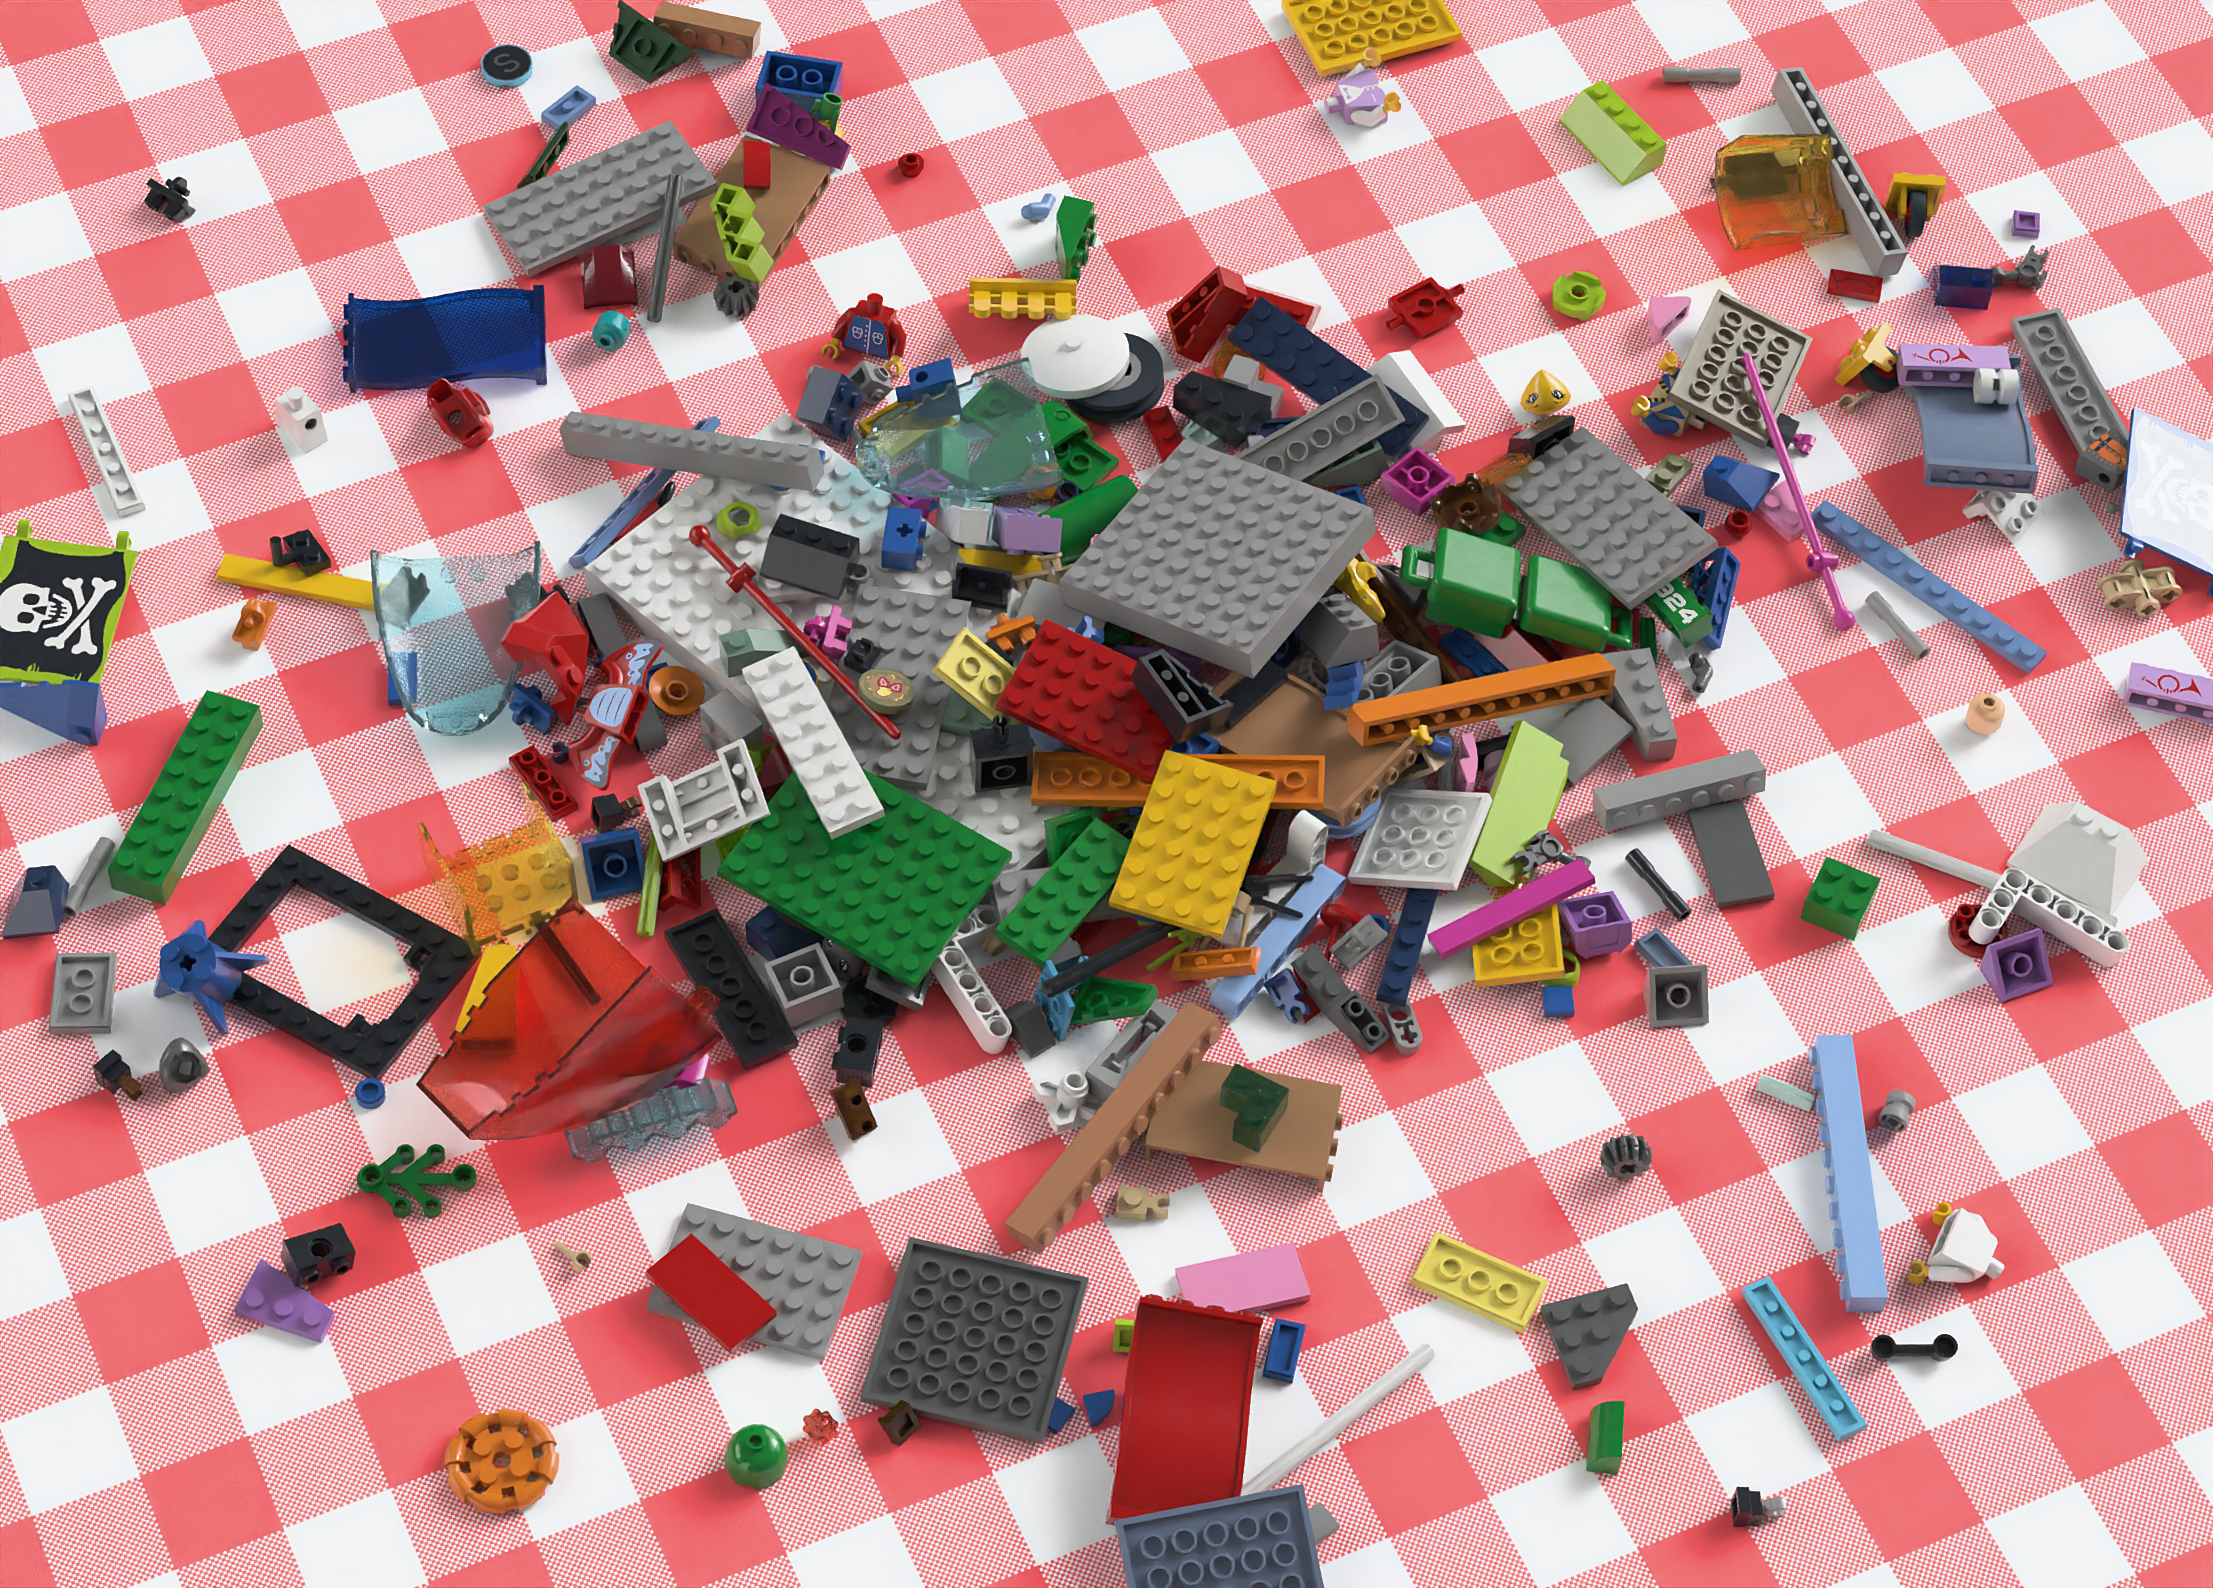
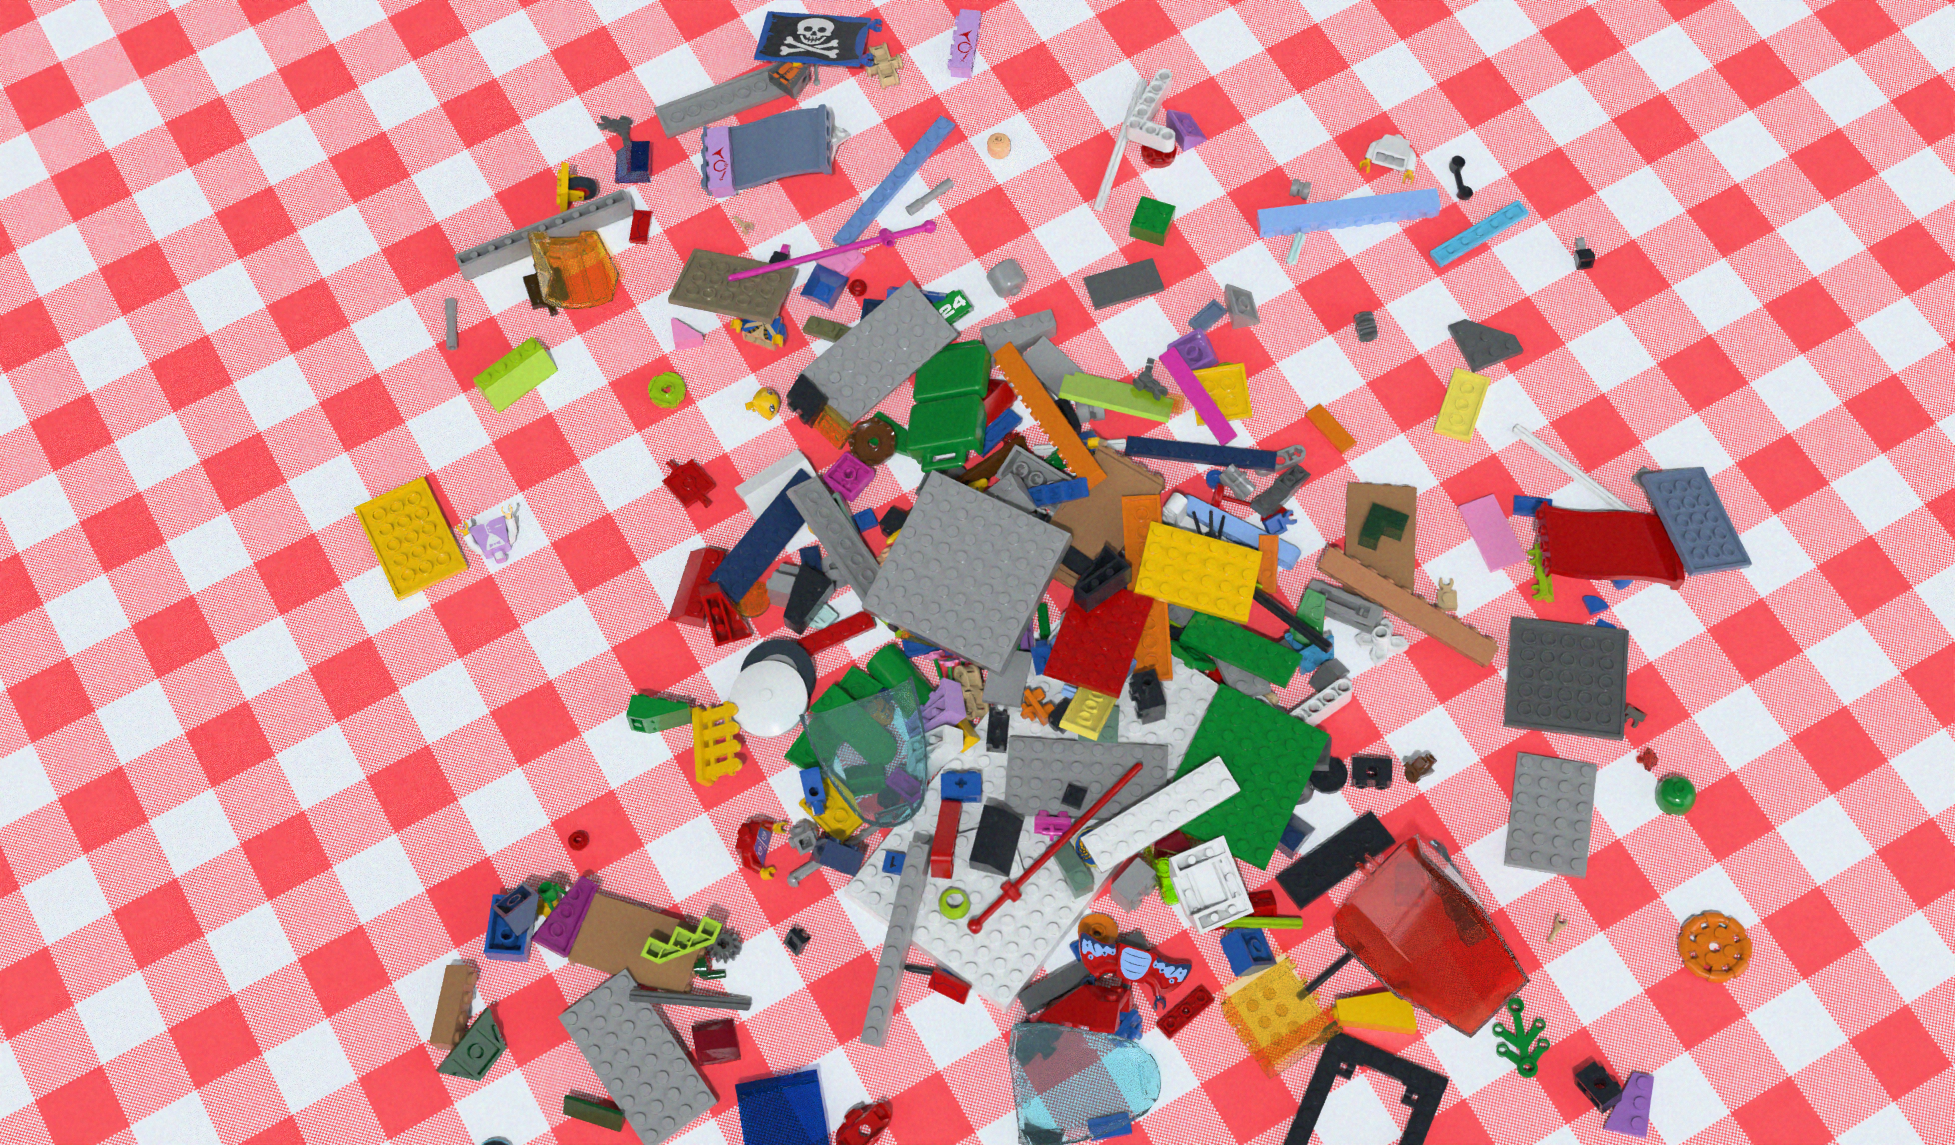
camera: 90 degrees left, 10 degrees up
(370, 1093) = (1460, 1082): blue tile -> none
(568, 107) = (540, 1102): medium blue plate -> none
(608, 812) = (1207, 960): black piece -> none
(611, 330) = (768, 1031): teal head -> none
(630, 506) = (924, 985): medium blue tile -> none
(704, 262) = (701, 968): none -> dark green plate
(711, 1293) = (1574, 834): red tile -> none
(729, 369) = (796, 941): none -> black tile
(756, 165) = (608, 940): red slope -> none
(804, 985) = (1331, 810): light grey brick -> none
(810, 74) = (518, 908): none -> dark blue slope
(830, 507) = (945, 839): none -> red beam
(886, 690) = (1105, 775): tile -> none
(1039, 210) = (616, 745): medium blue arm -> none
(1420, 839) = (1158, 444): white plate -> none
(1450, 1092) = (1331, 429): none -> orange tile
(1466, 764) = (1102, 425): bright pink slope -> none
(1558, 1001) = (1253, 373): blue tile -> none
(1605, 1437) = (1556, 330): green brick -> none
(1648, 636) = (967, 335): green axle -> none
(1669, 897) = (1145, 328): black piece -> none
(1679, 790) = (1084, 310): light grey brick -> none
(1702, 671) = (983, 303): dark grey arm -> none
(1740, 697) = (1006, 278): none -> light grey head
(1871, 361) = (713, 213): yellow plate -> none
(2005, 386) = (740, 135): white wheel -> none
(2025, 224) = (575, 130): medium lavender tile -> none
(2081, 855) = (1095, 100): white slope -> none

